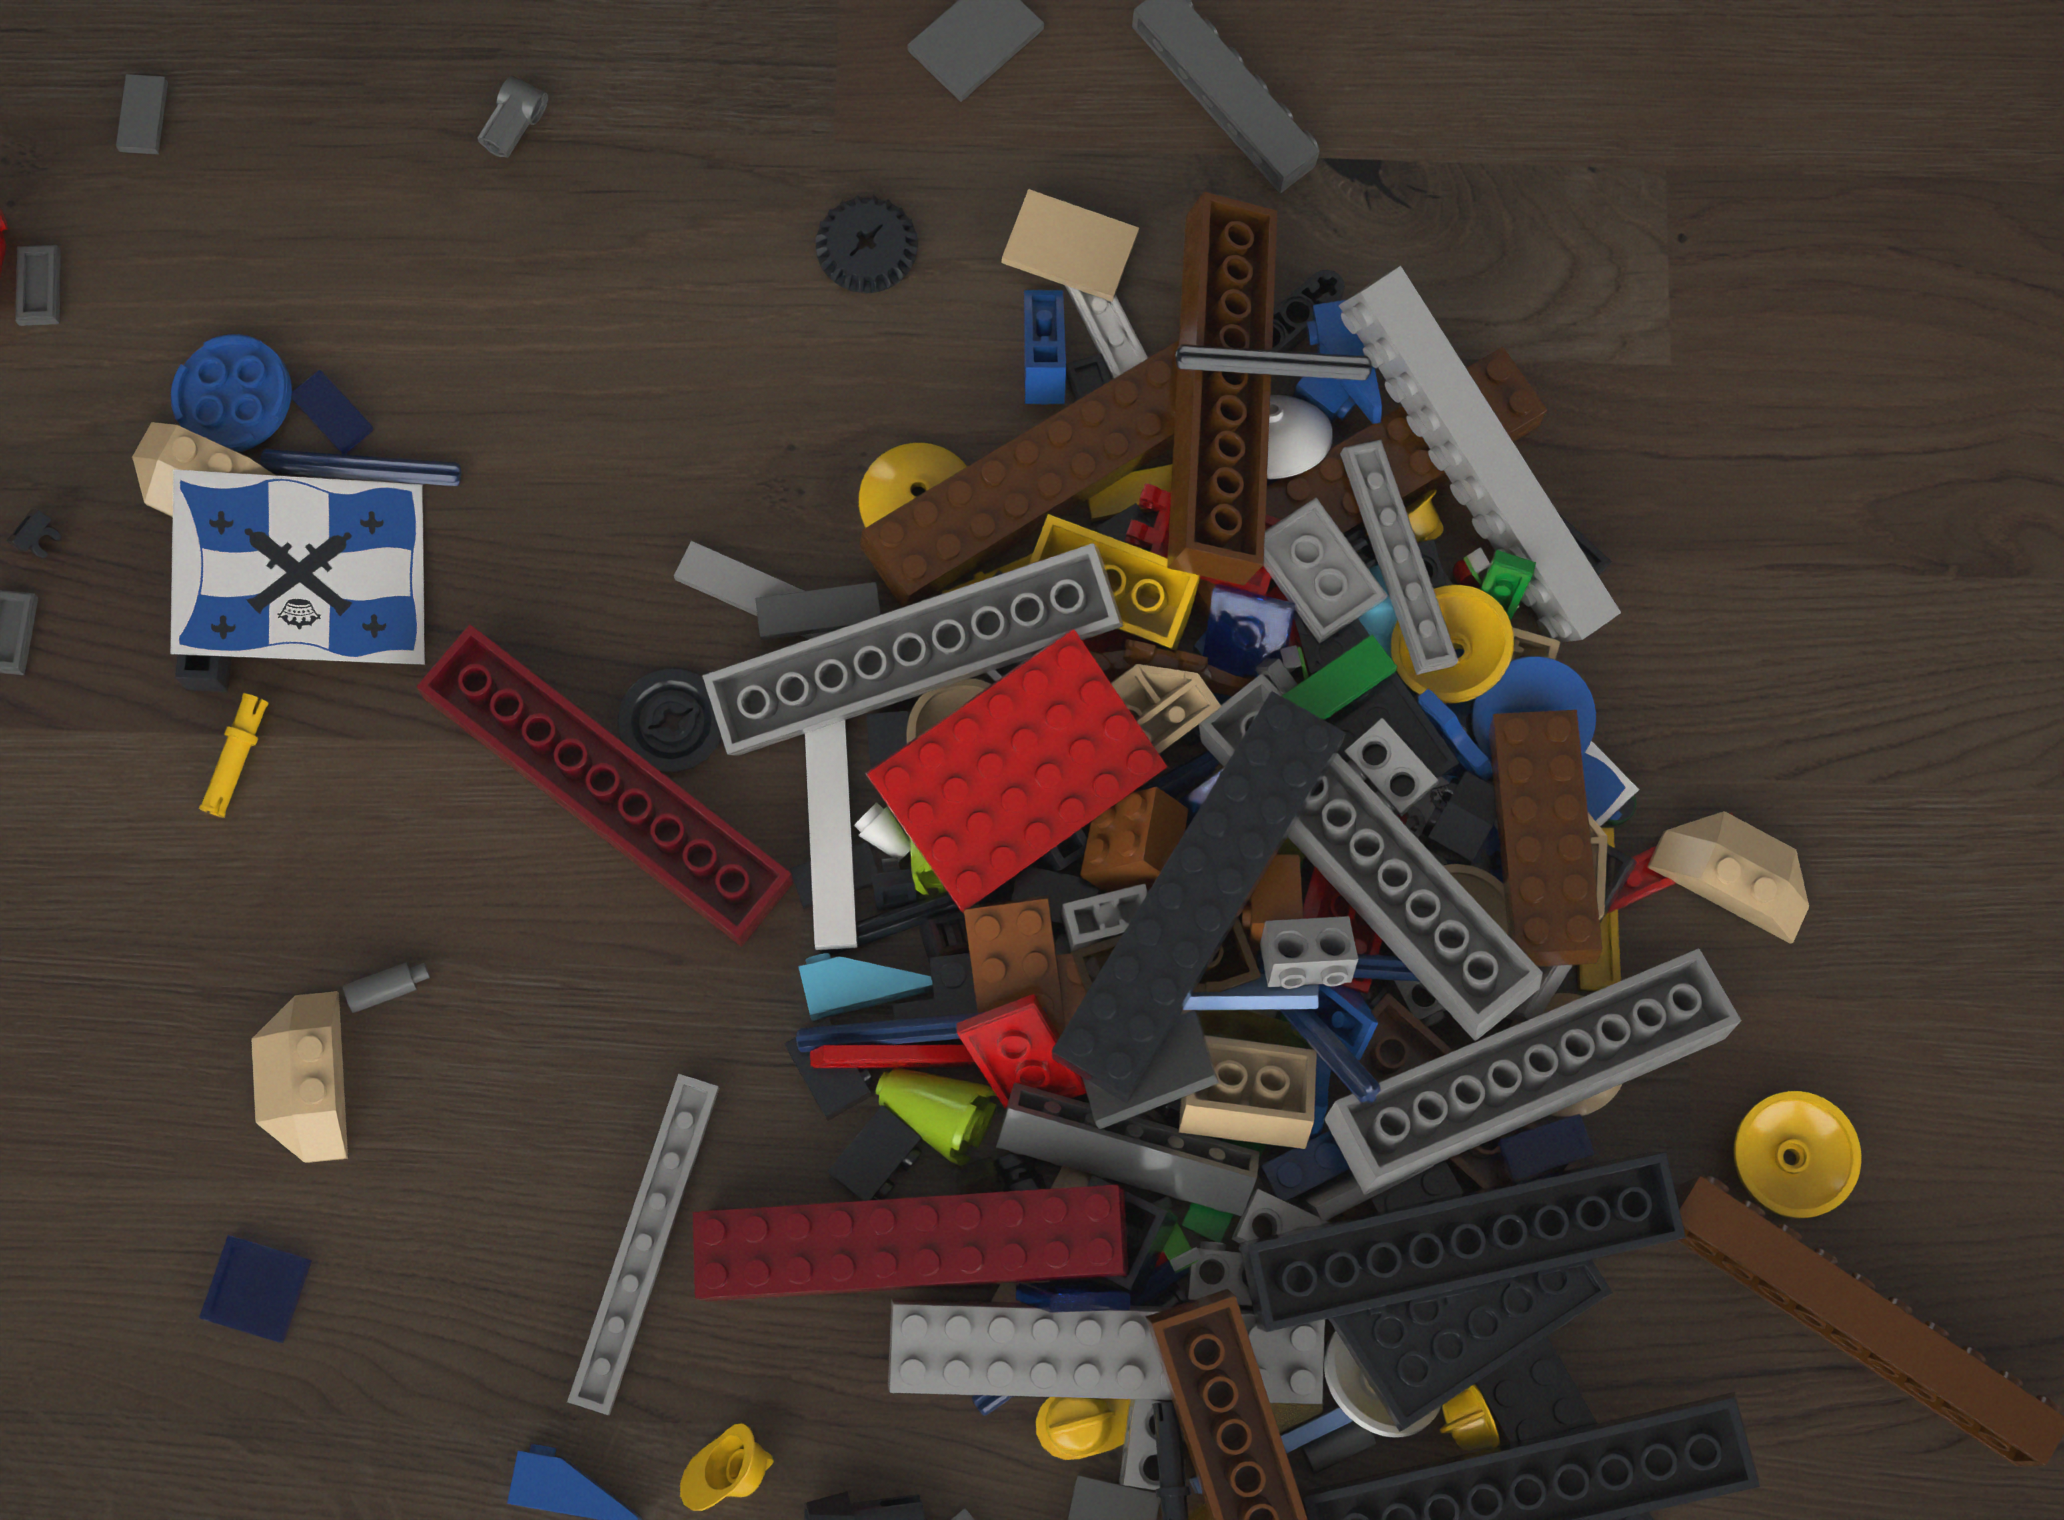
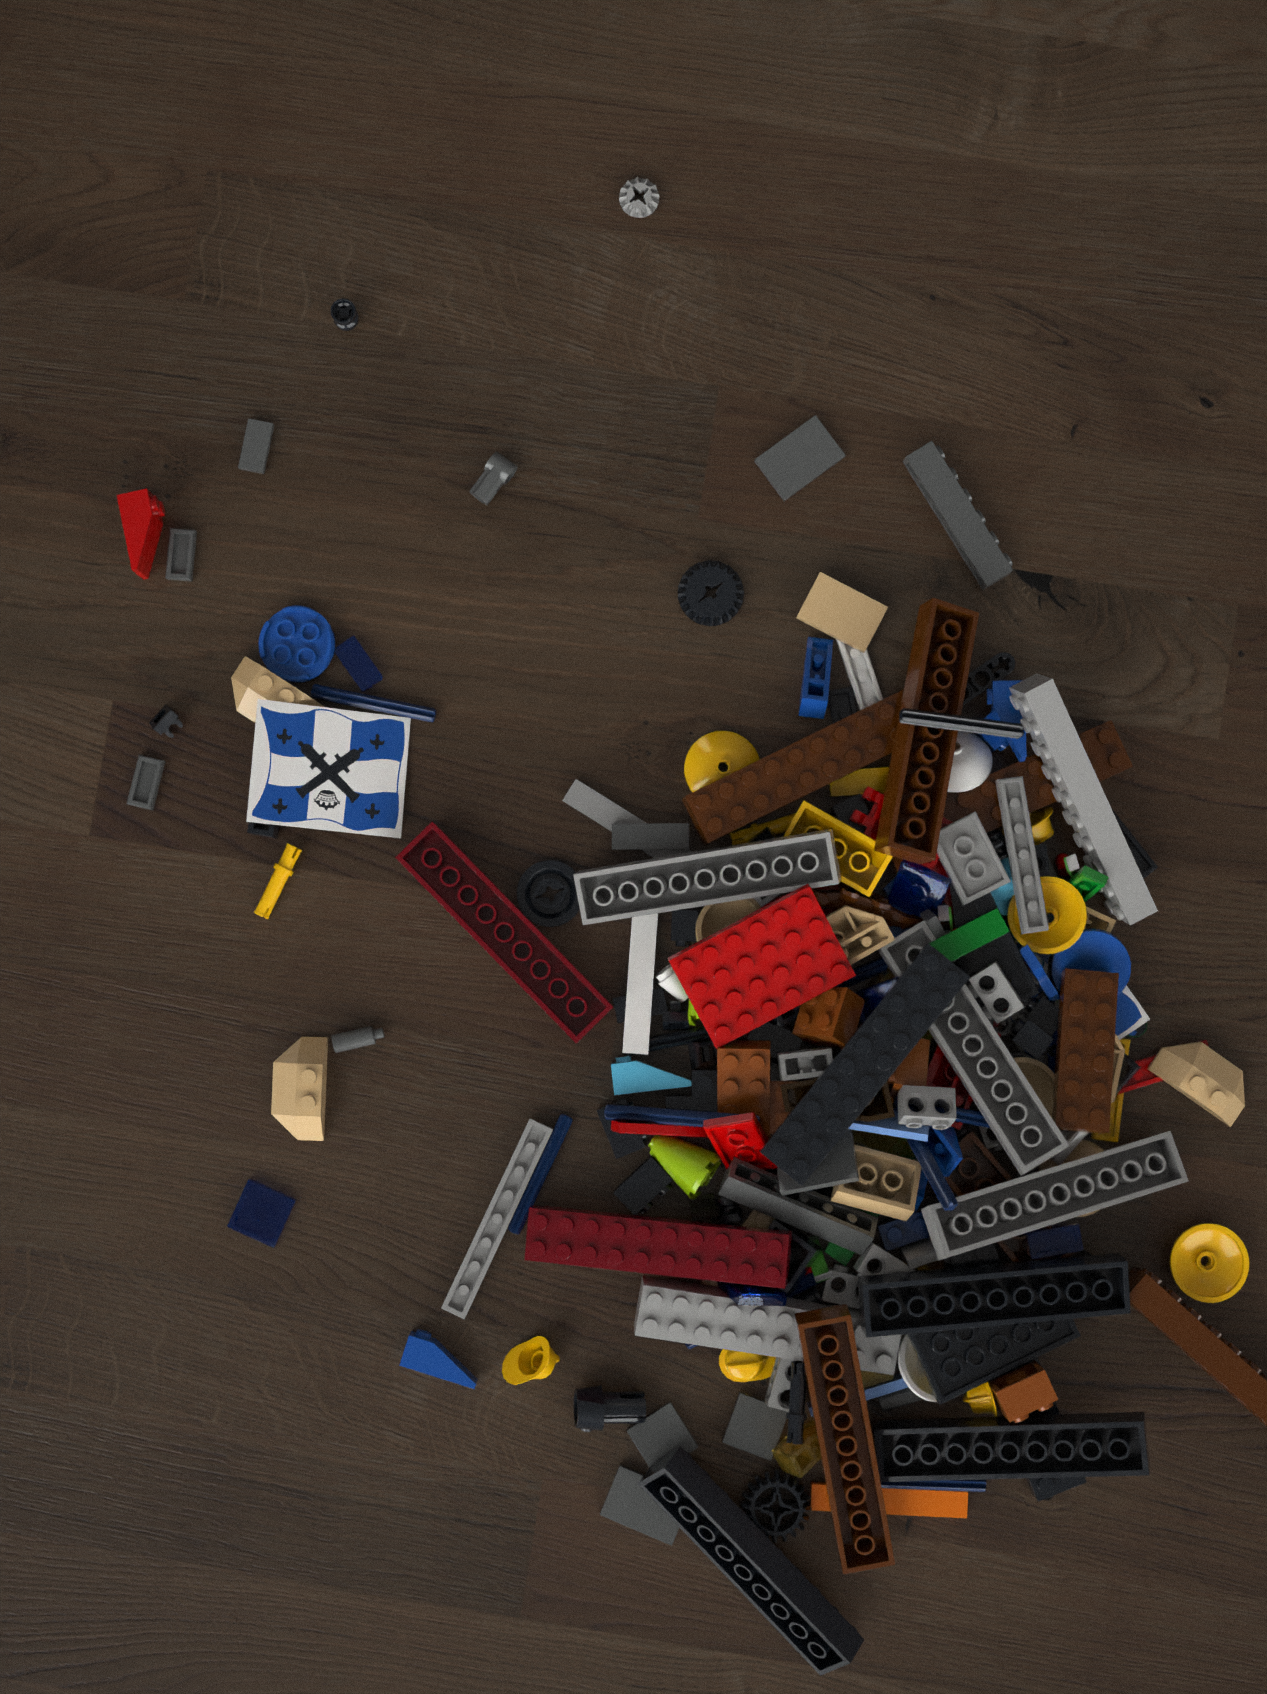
camera: 15 degrees right, 10 degrees up
(706, 1162) = (540, 1173): none -> dark blue axle
(1535, 1390) = (1023, 1392): none -> dark orange brick

